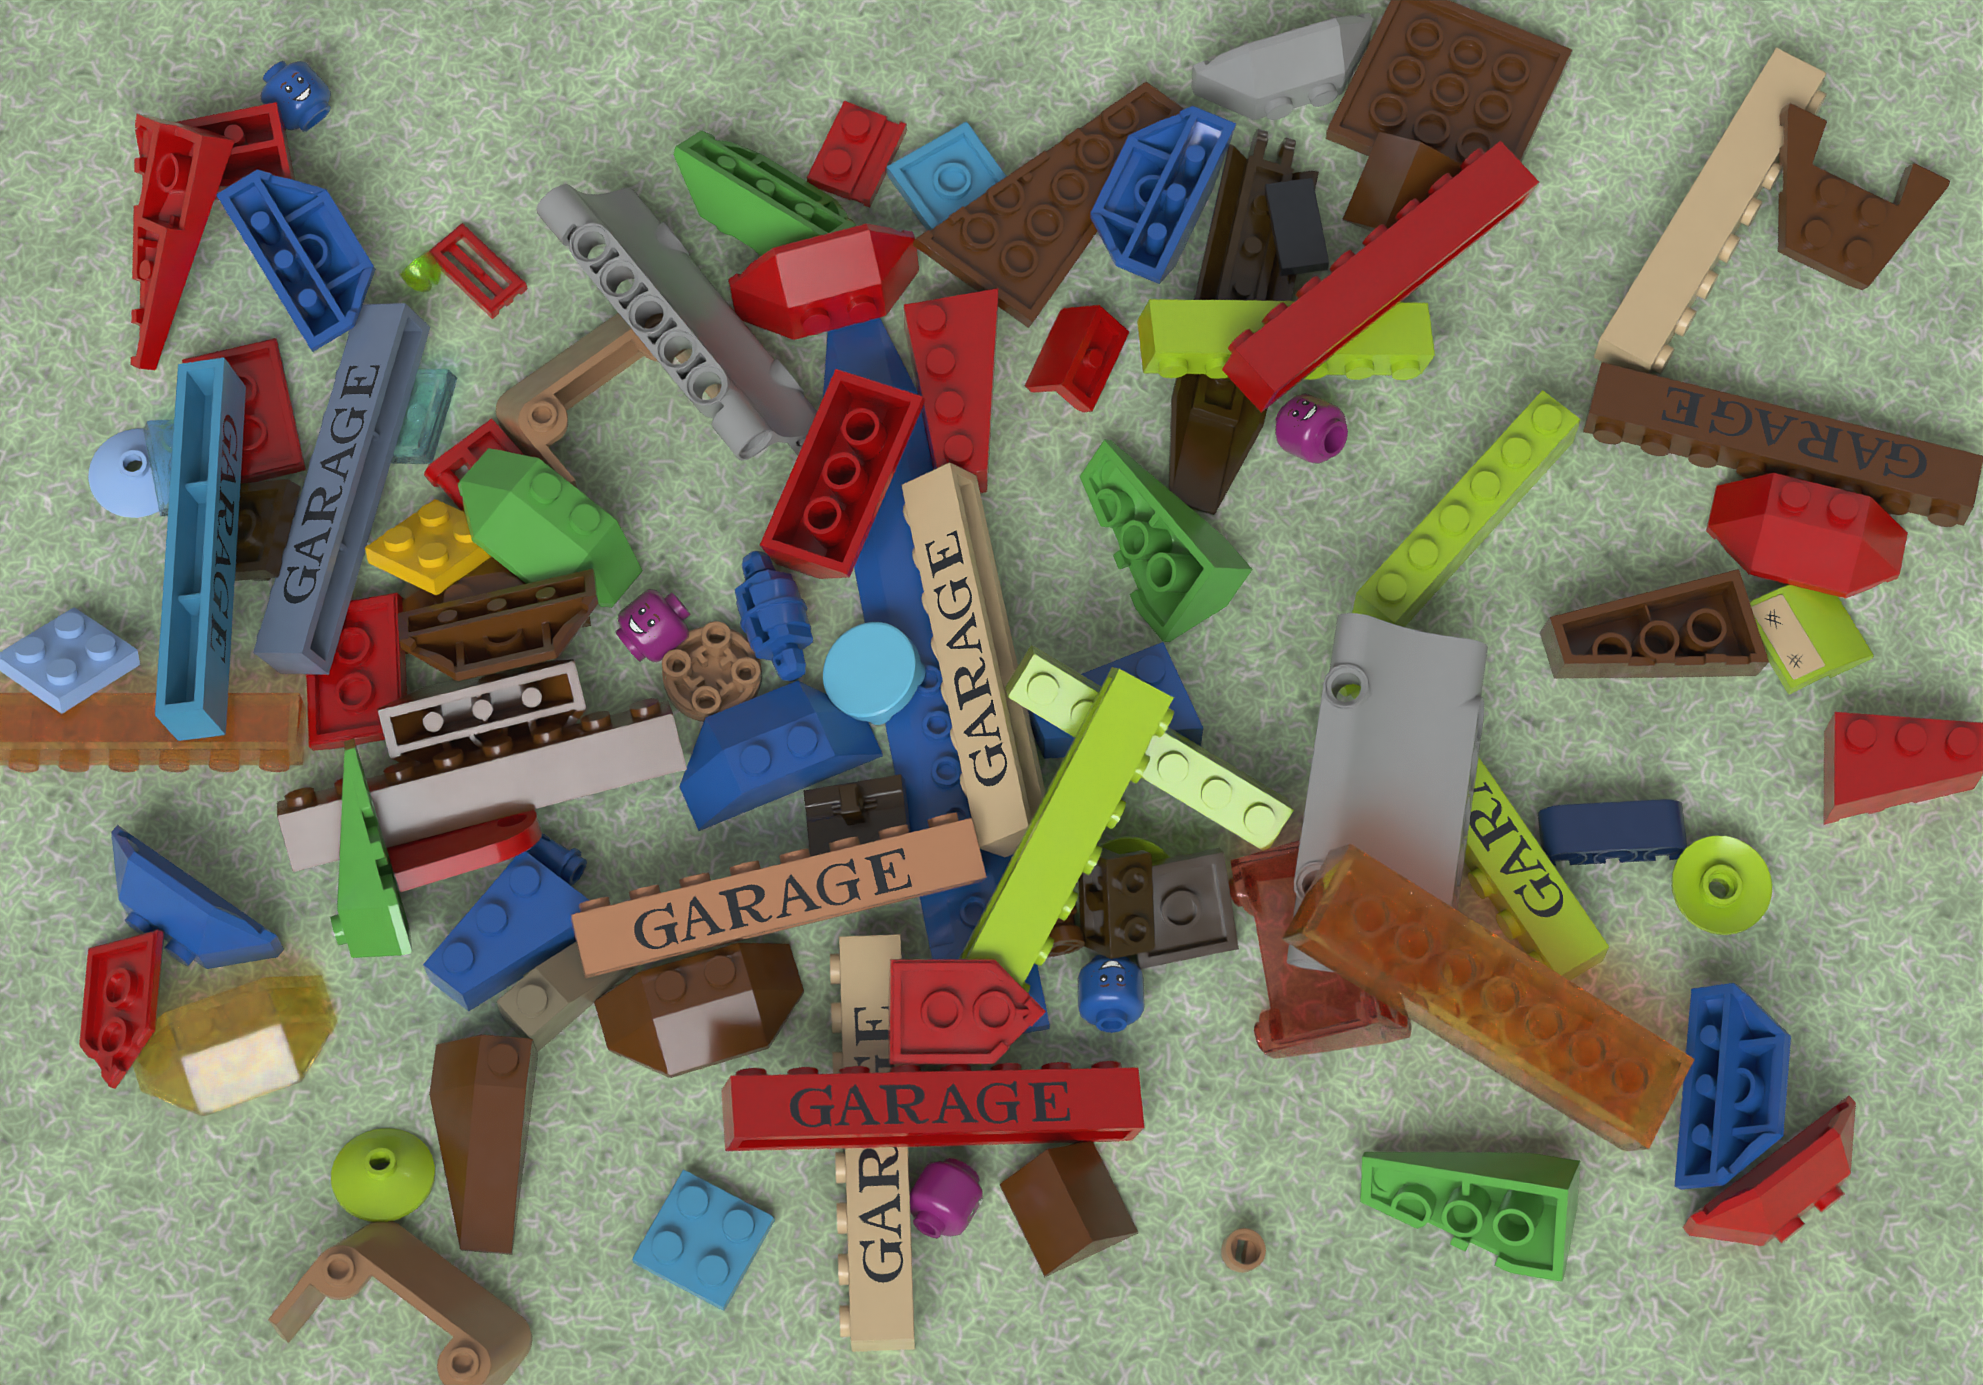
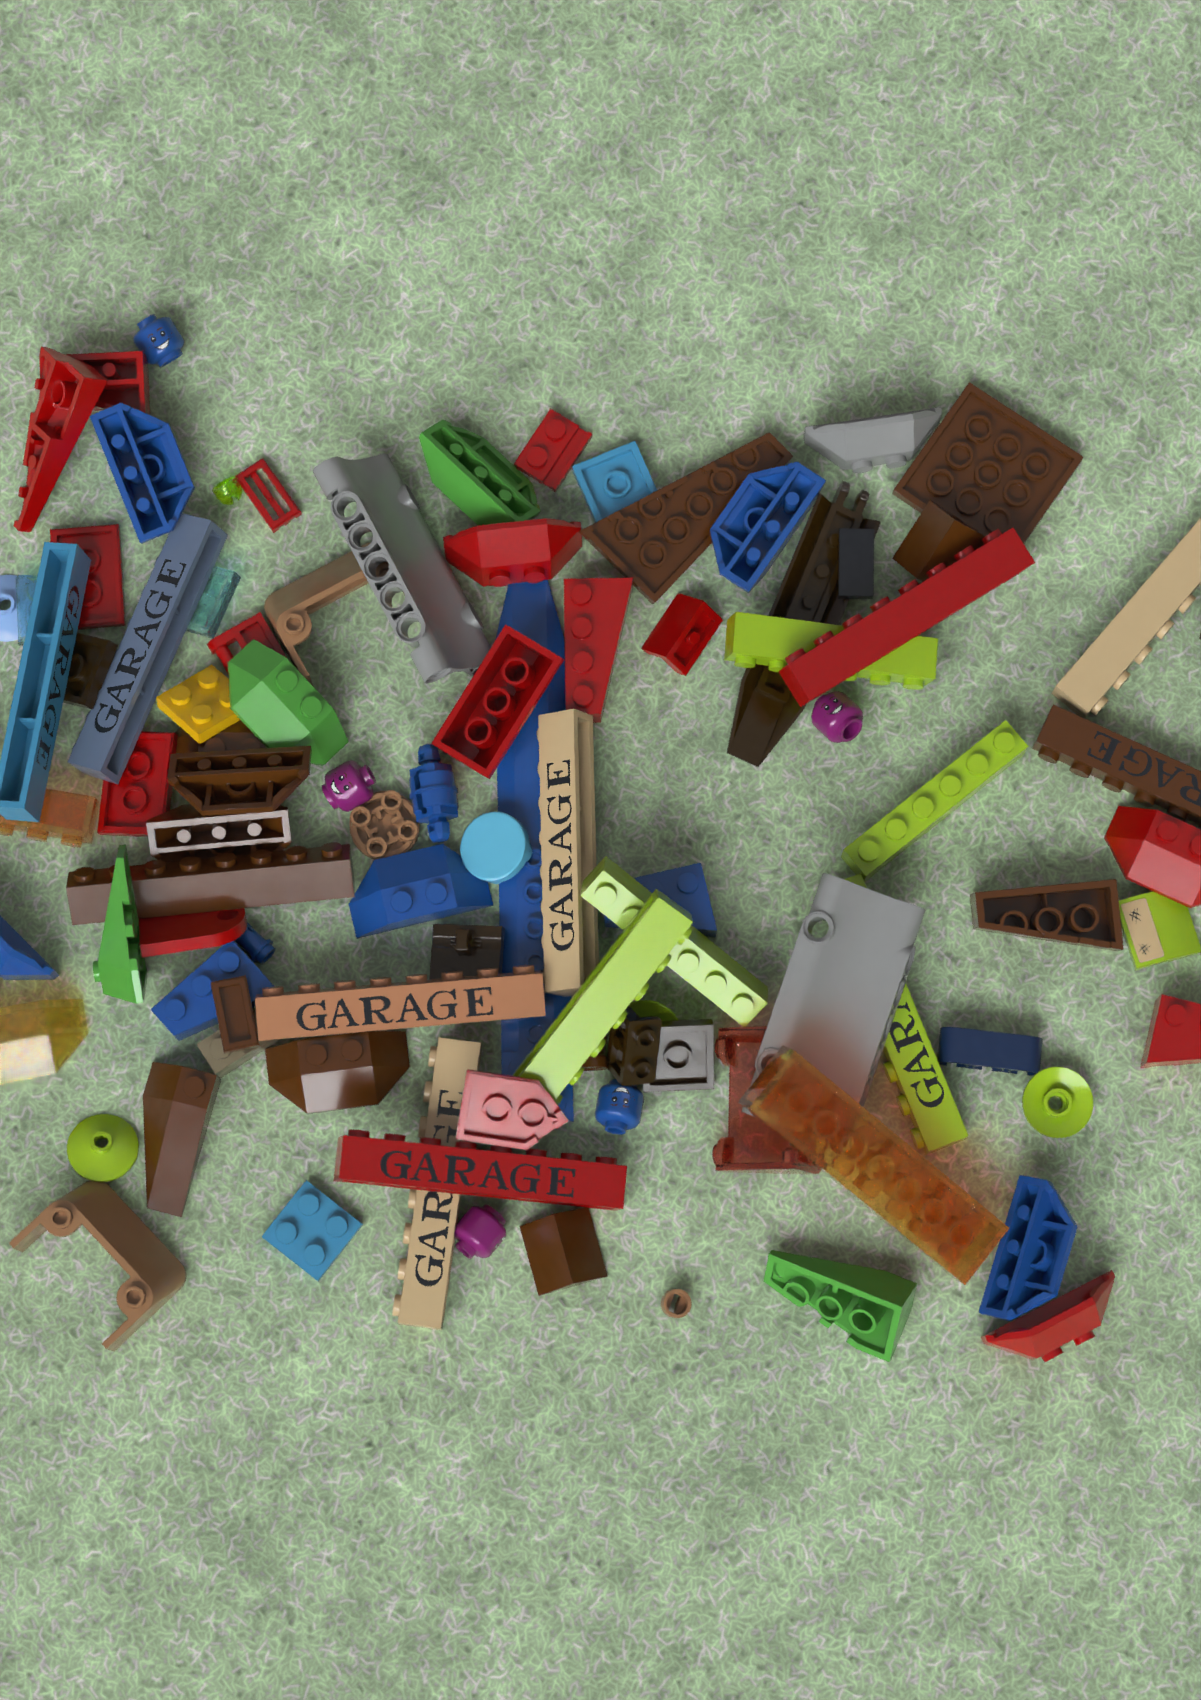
camera: 10 degrees right, 10 degrees up
(545, 948) = (235, 1014): none -> reddish brown tile
(1174, 555) = (722, 793): bright green wedge -> none

